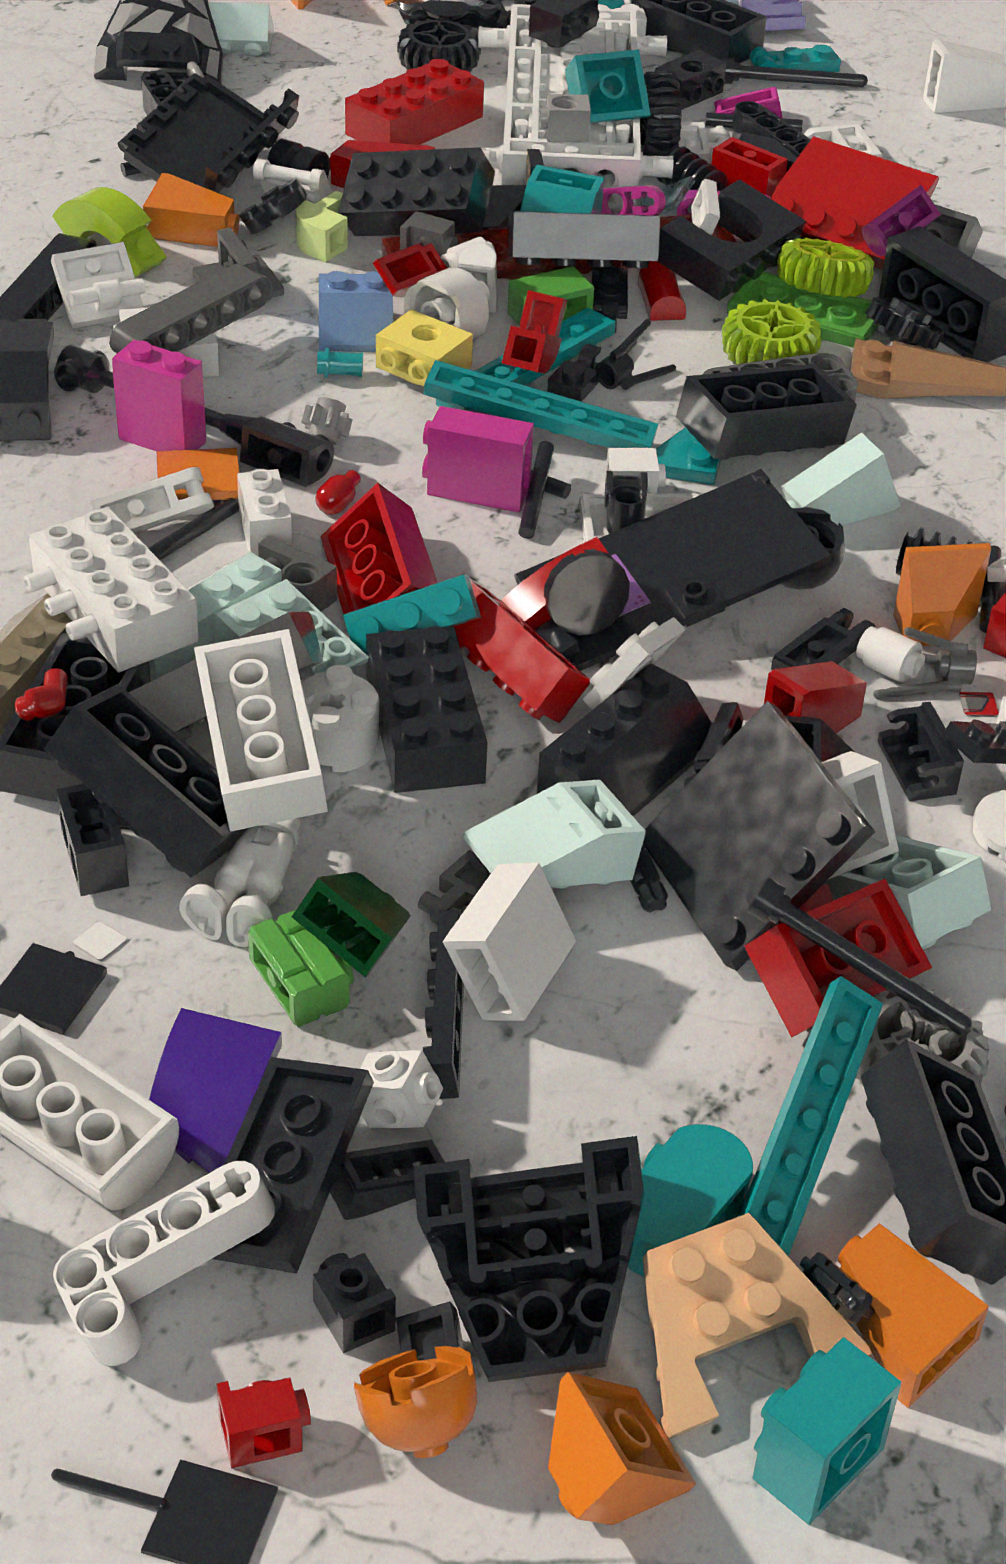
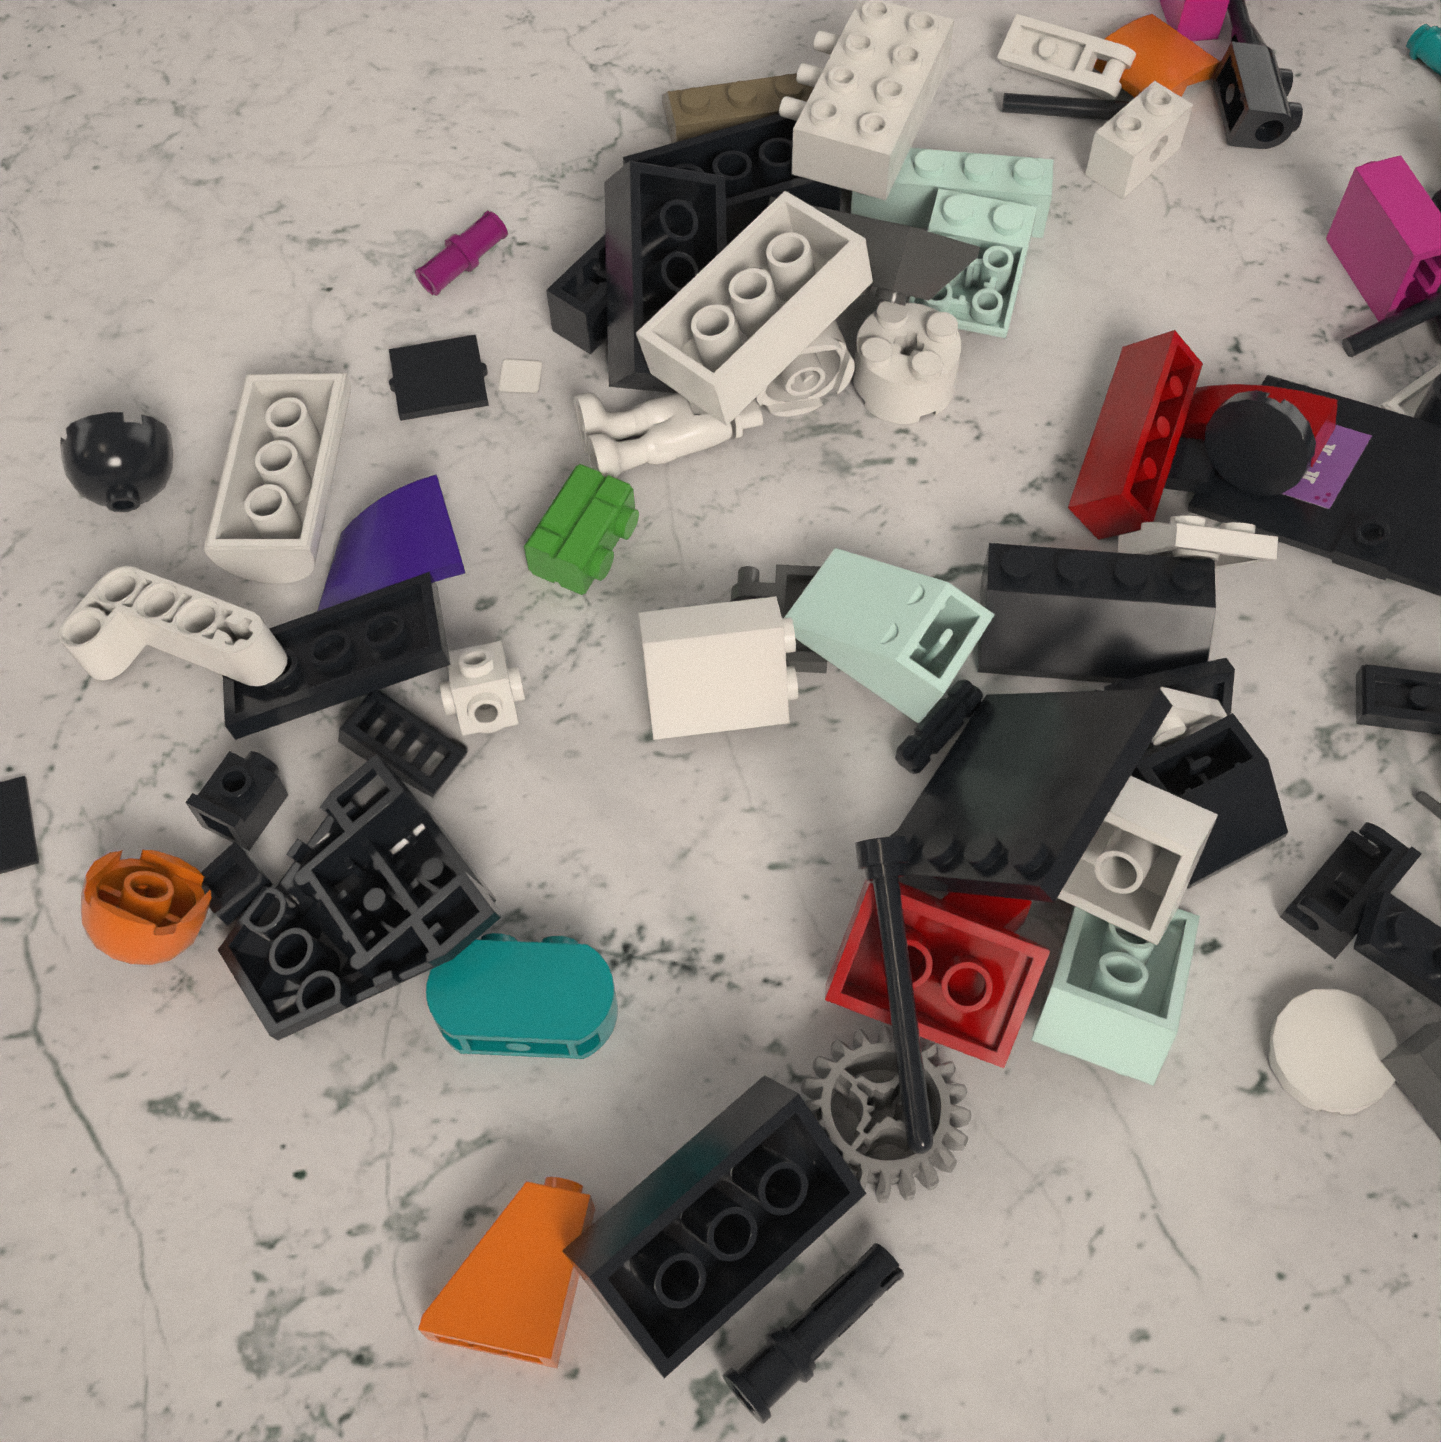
camera: 60 degrees right, 20 degrees up
(45, 699) = (702, 149): red arm -> none
(262, 1420) = (73, 804): red brick -> none
(307, 573) = (1077, 222): dark grey plate -> none
(327, 418) = (1328, 96): light grey gear -> none
(337, 492) = (1240, 171): red cylinder -> none
(355, 922) = (651, 532): dark green torso -> none
(377, 551) = (1163, 269): red slope -> none
(426, 709) = (991, 419): black brick -> none
(439, 605) = (1093, 331): teal plate -> none
(445, 1019) = (590, 684): black plate -> none
(611, 1452) = (199, 1097): orange slope -> none
(721, 1292) = (419, 1095): light nougat wing -> none
(811, 1111) = (681, 1057): teal plate -> none
(817, 692) = (1320, 738): red slope -> none
(824, 1428) = (297, 1271): teal brick -> none
(838, 1288) = (473, 1218): black axle -> none

